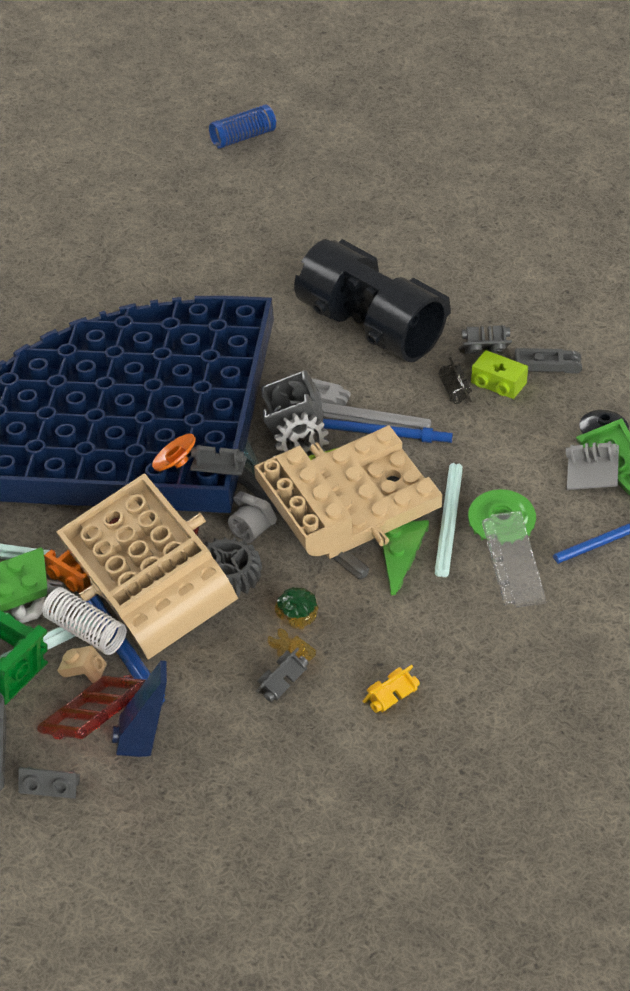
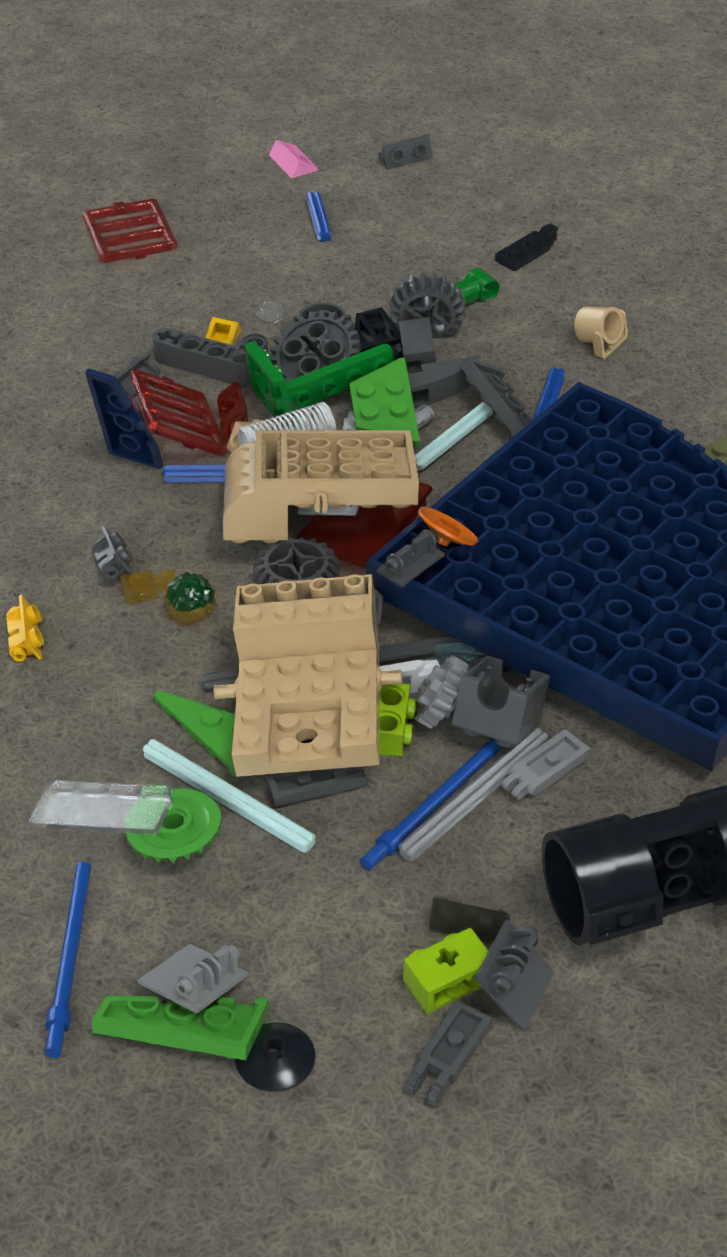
camera: 120 degrees right, 0 degrees up
(48, 689) = (231, 409): none -> clear red slope

